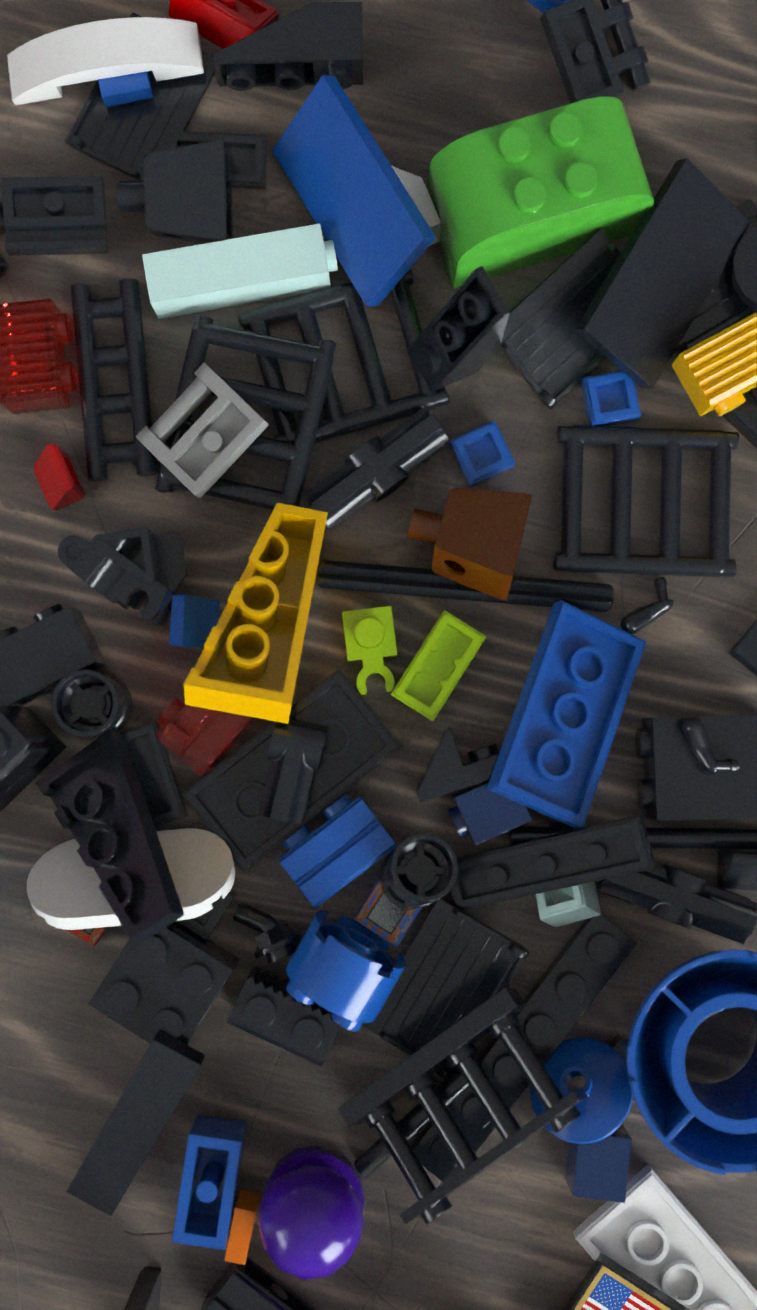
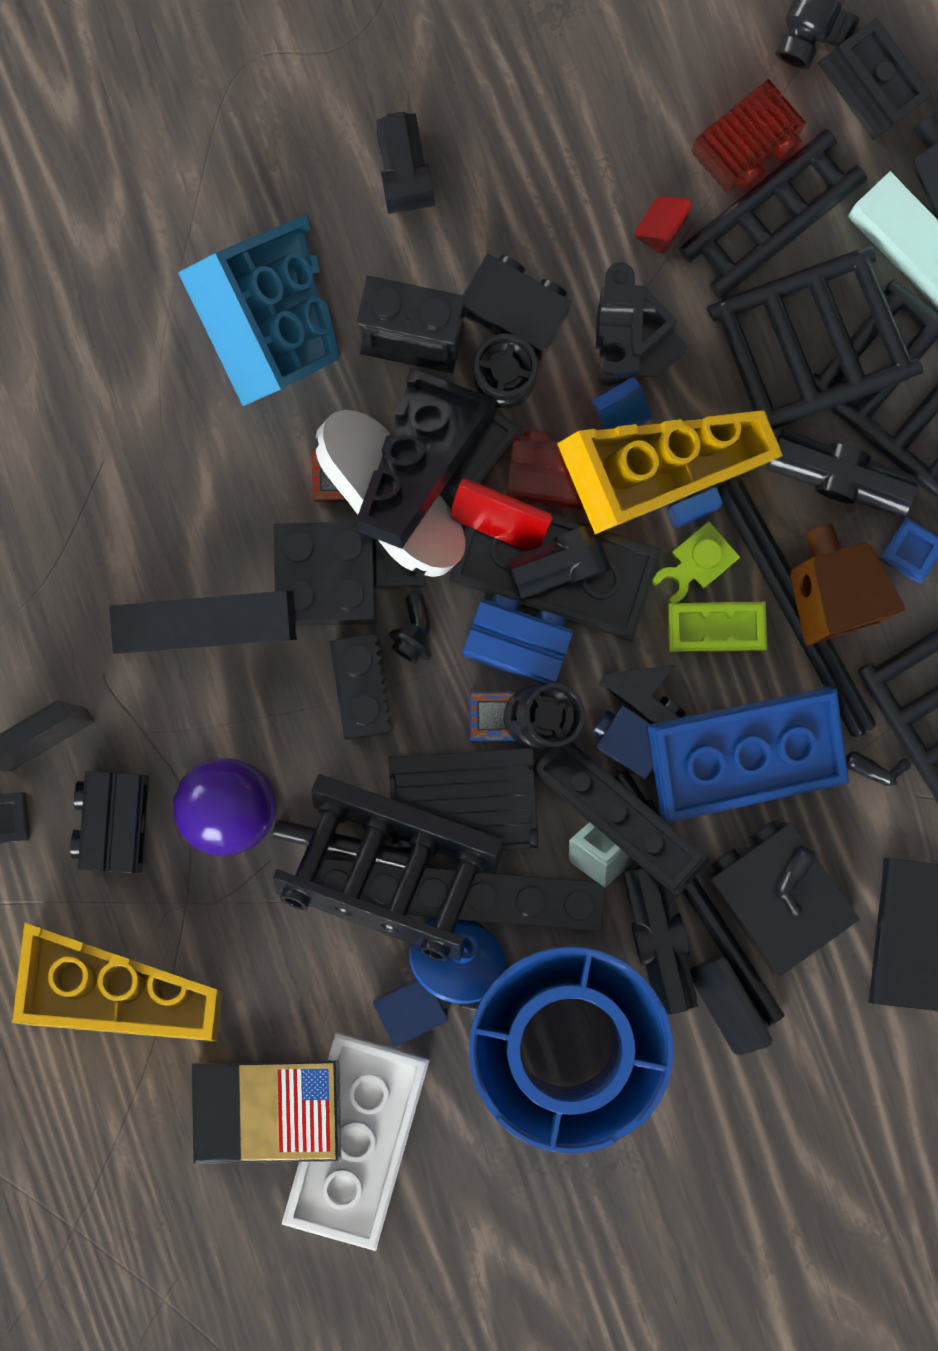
camera: 50 degrees right, 0 degrees up
(209, 1182) = (195, 711): blue brick -> none
(212, 440) = (776, 326): light grey plate -> none
(216, 793) = (500, 515): none -> red slope
(242, 1227) = (174, 761): orange tile -> none
(322, 616) = (694, 508): none -> blue tile
(343, 970) = (429, 707): blue brick -> none

